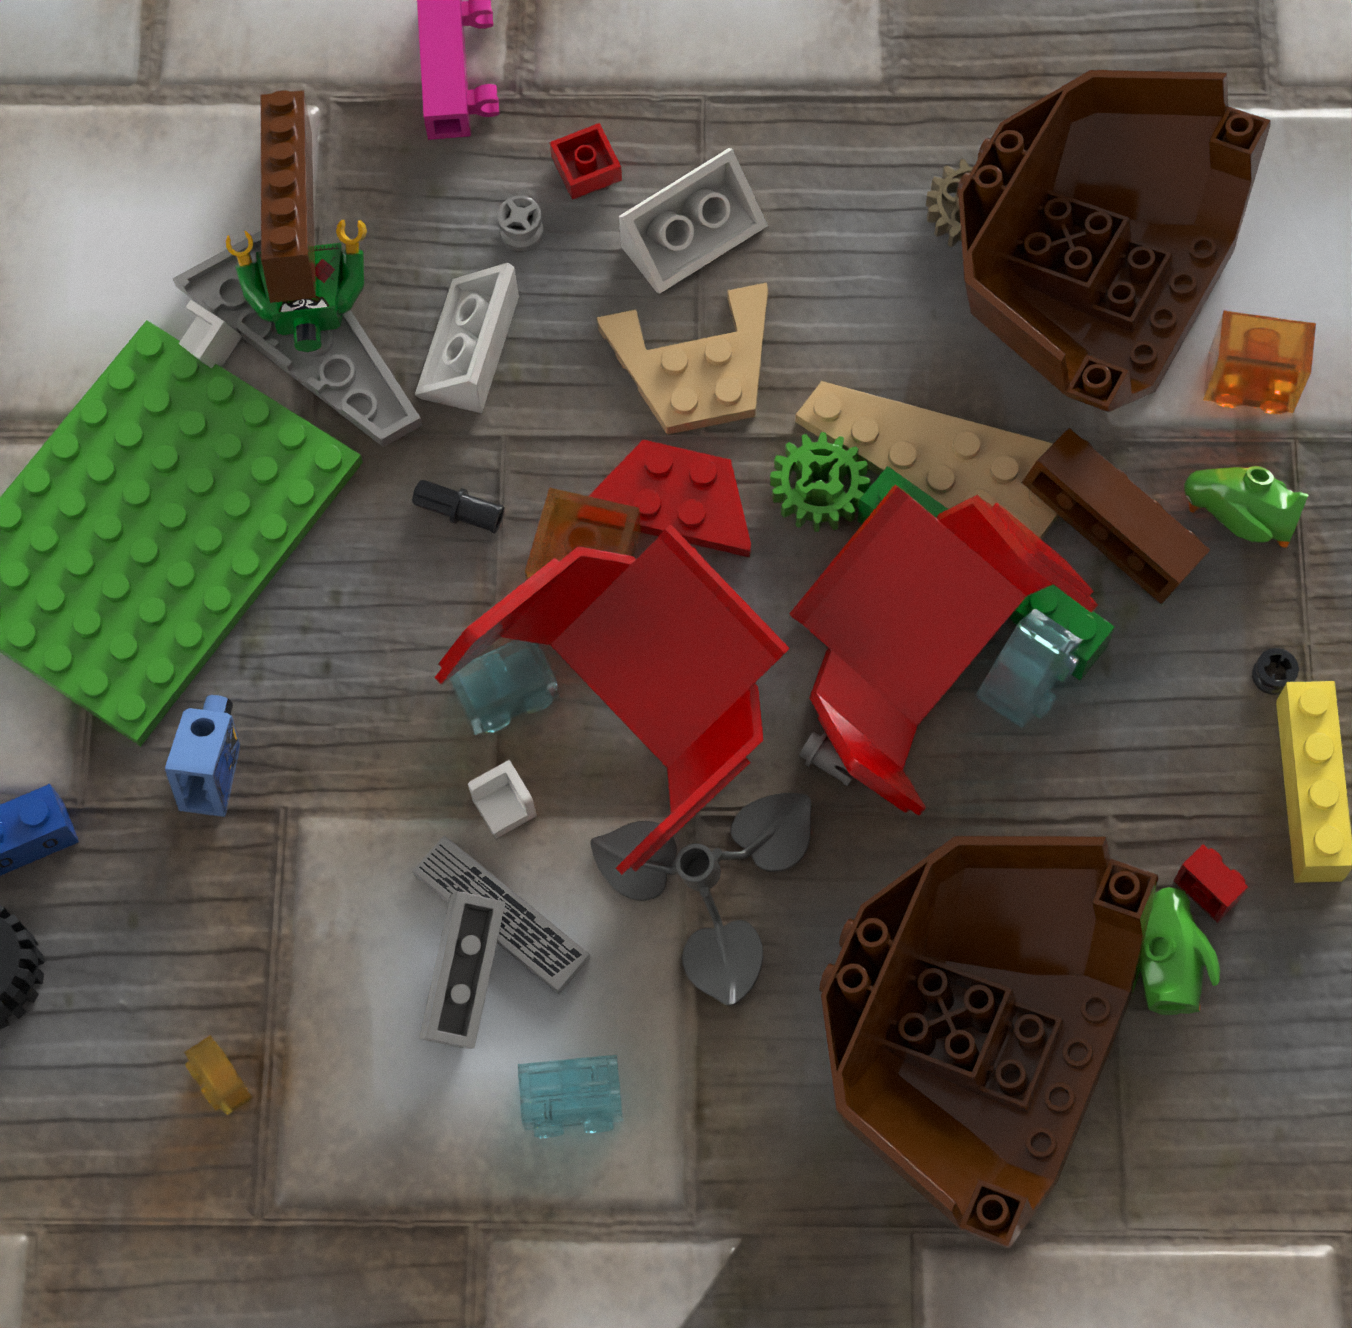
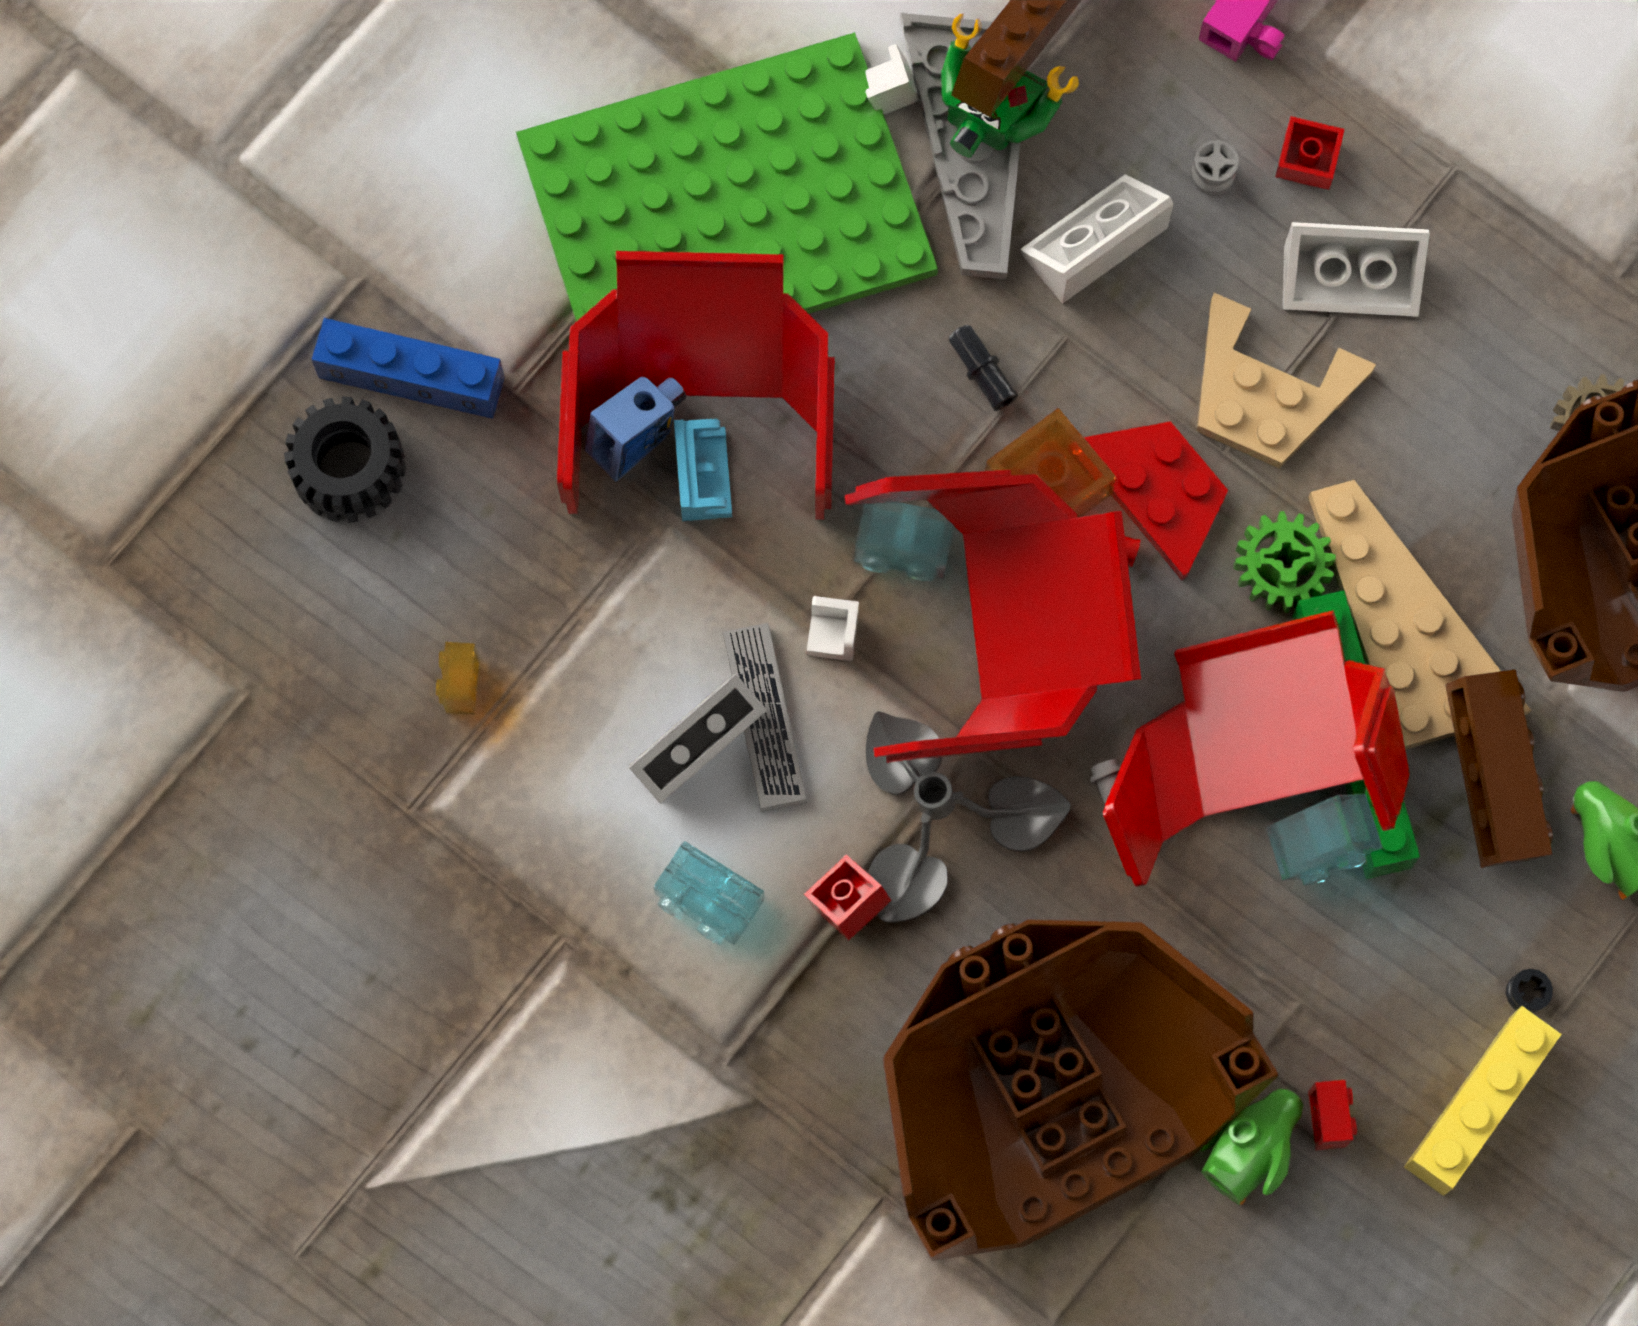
camera: 35 degrees right, 5 degrees up
(221, 628) = (714, 329): none -> red piece
(291, 752) = (702, 469): none -> medium azure hinge
(688, 1007) = (847, 897): none -> red piece

